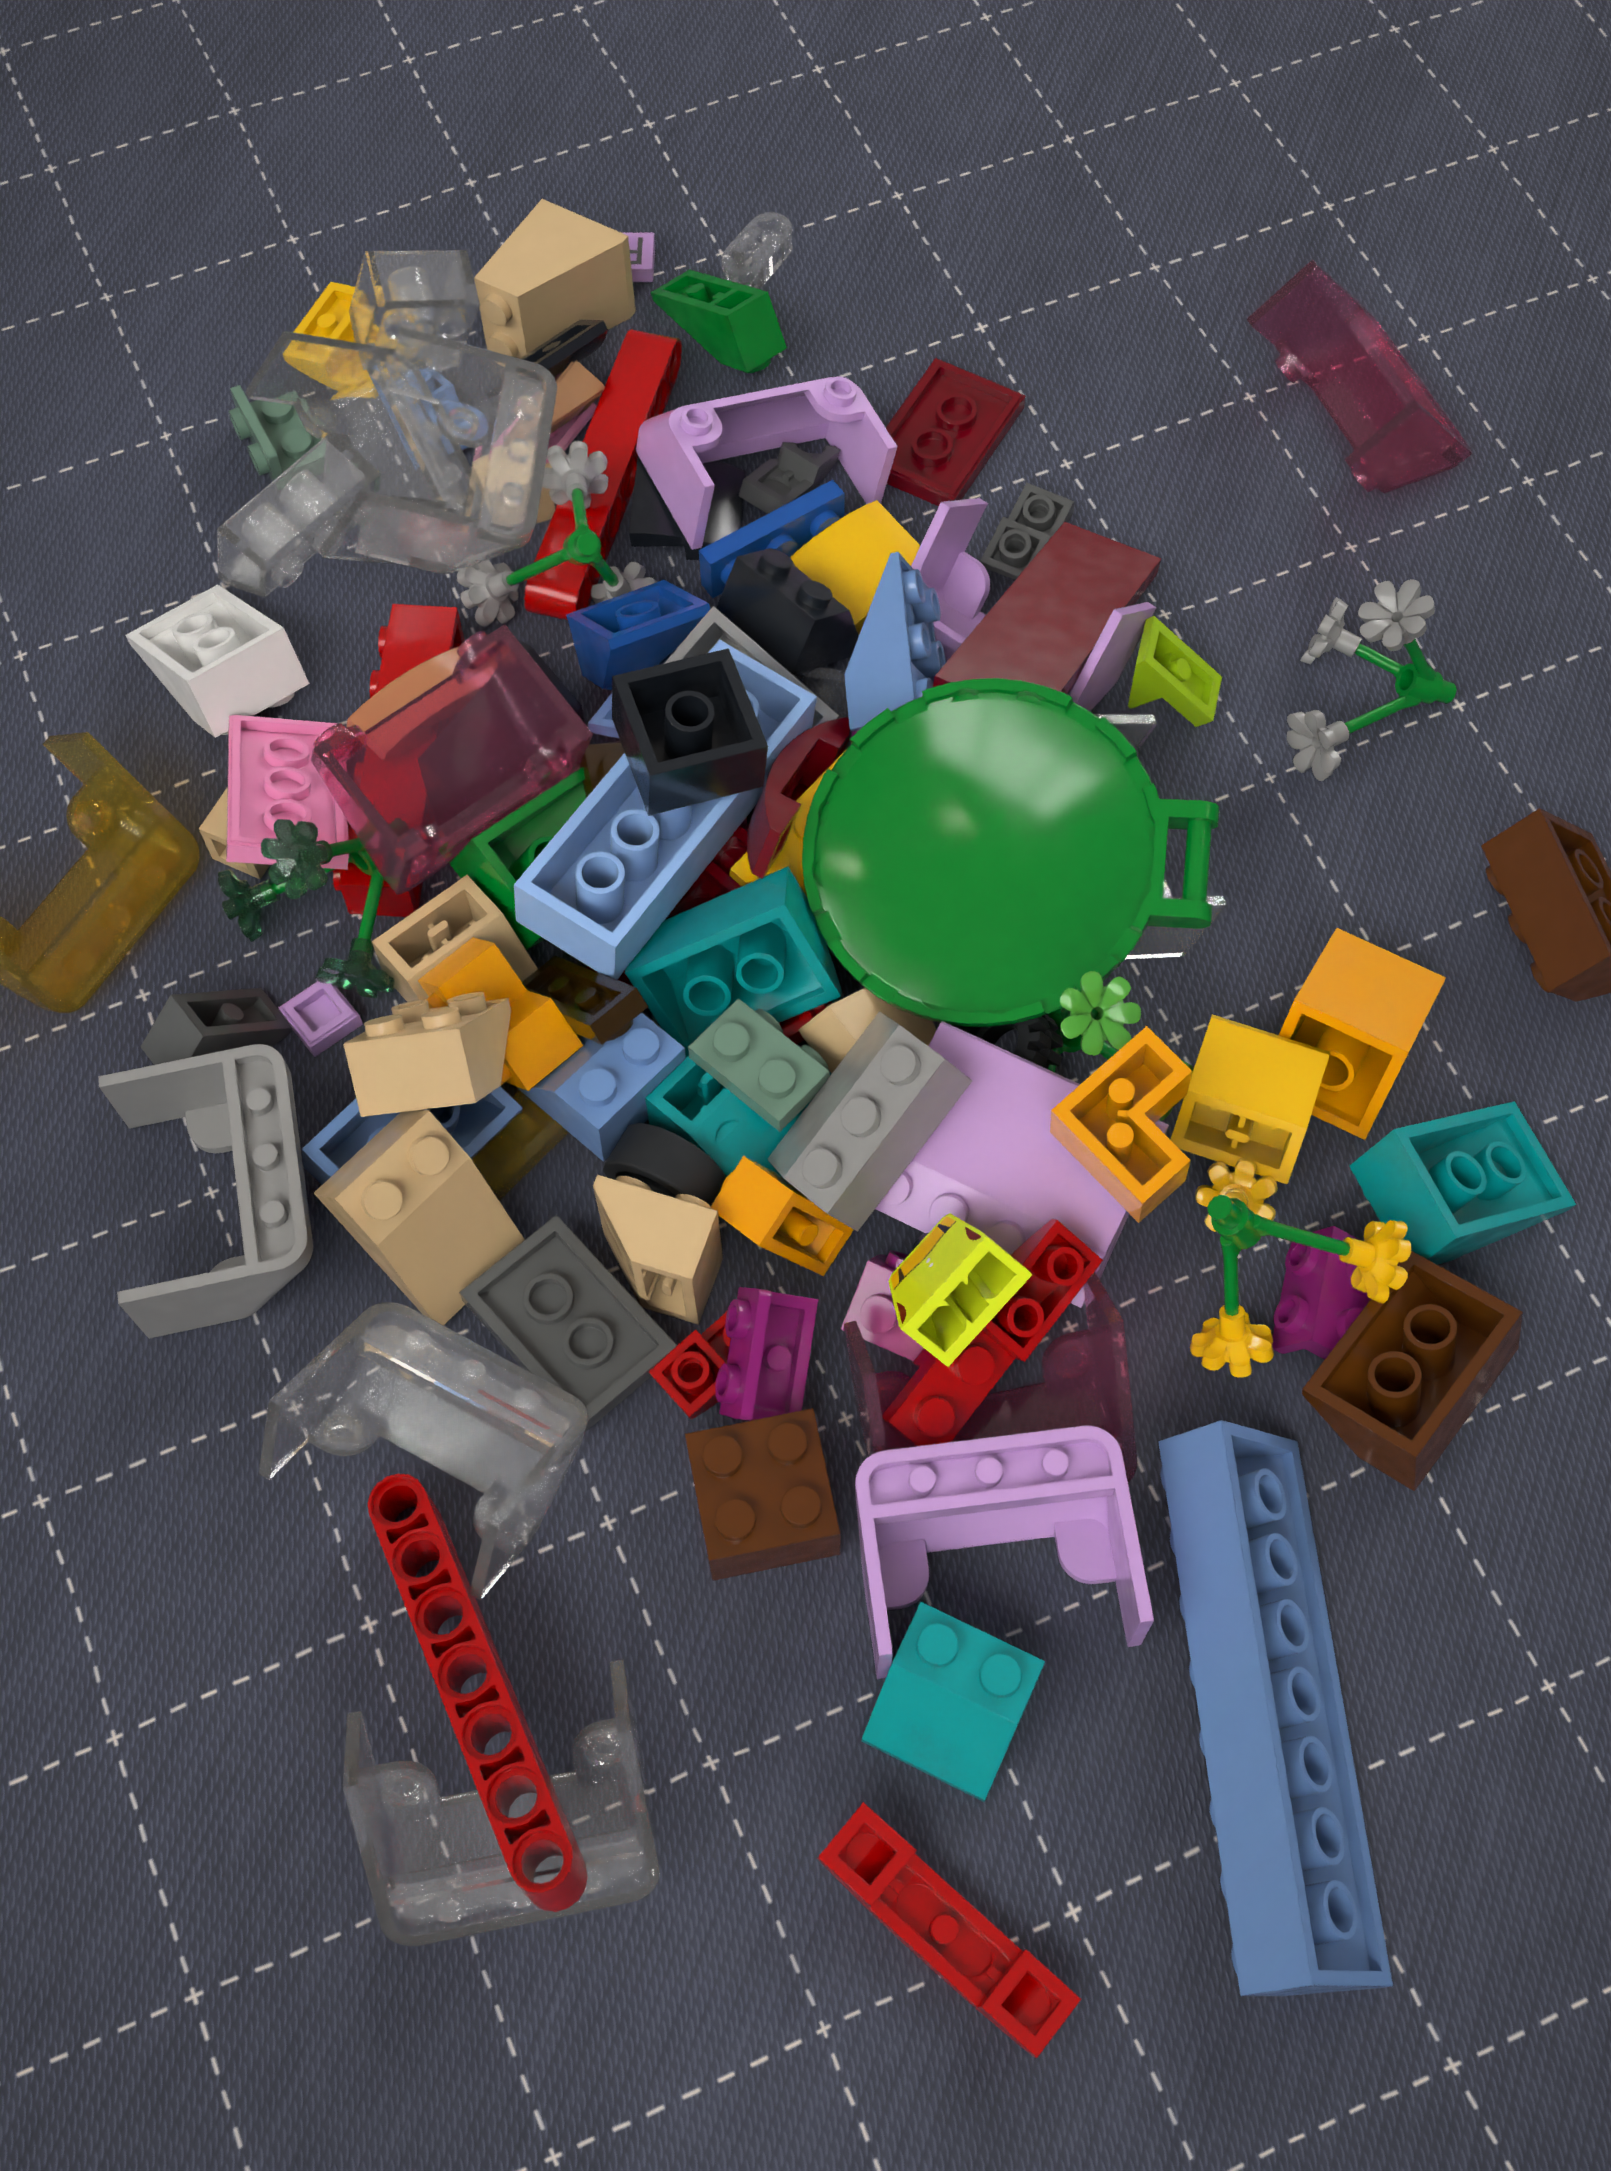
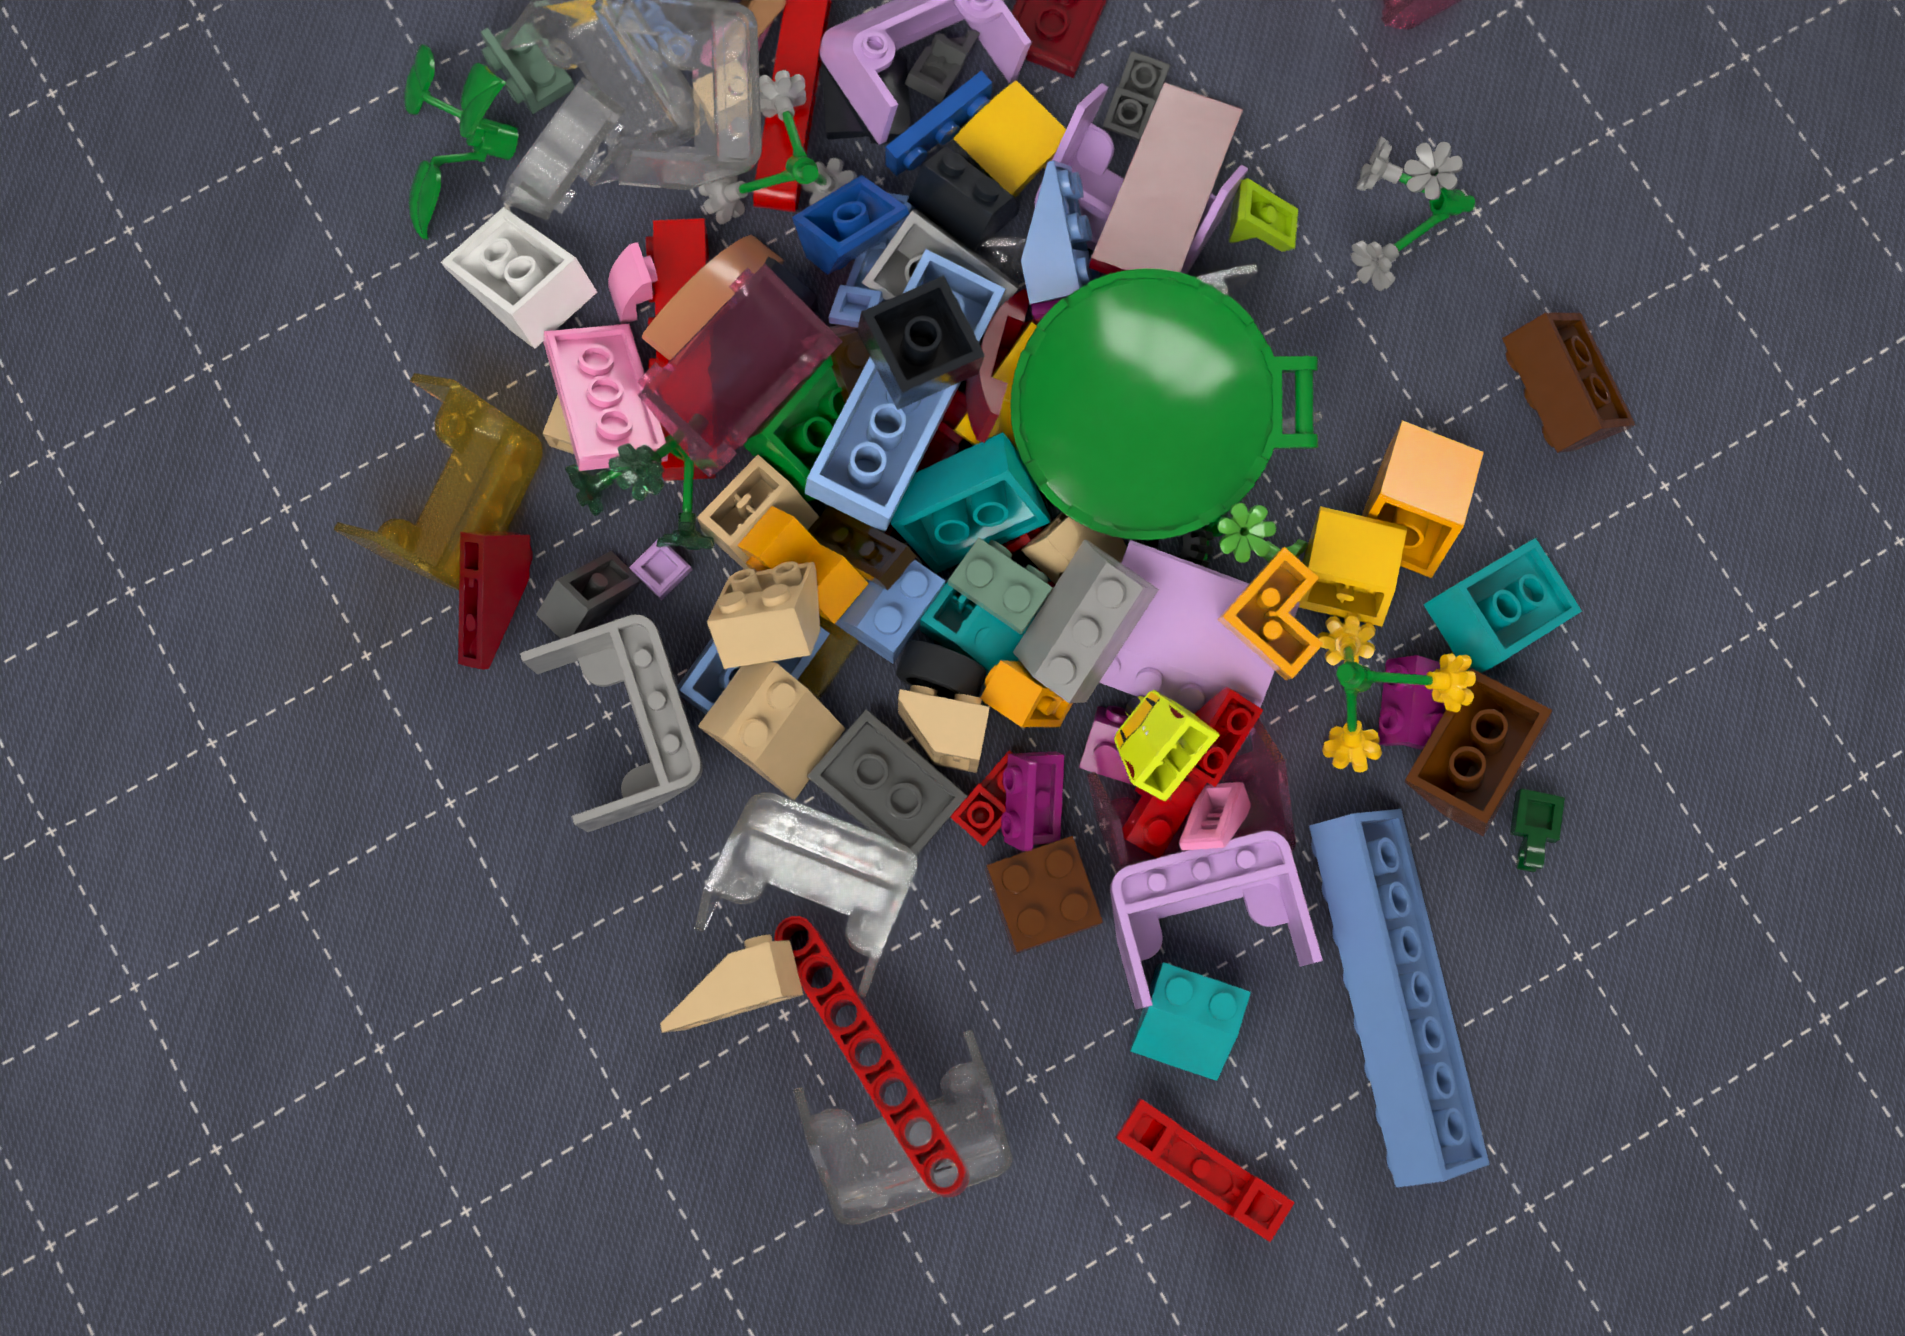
camera: 15 degrees left, 15 degrees up
(92, 999) = (490, 587): none -> dark red slope
(209, 498) = (483, 134): none -> green plant
(301, 1559) = (740, 983): none -> tan slope
(349, 666) = (631, 282): none -> bright pink slope
(1022, 1402) = (1215, 816): none -> bright pink slope
(1498, 1479) = (1537, 820): none -> dark green plate

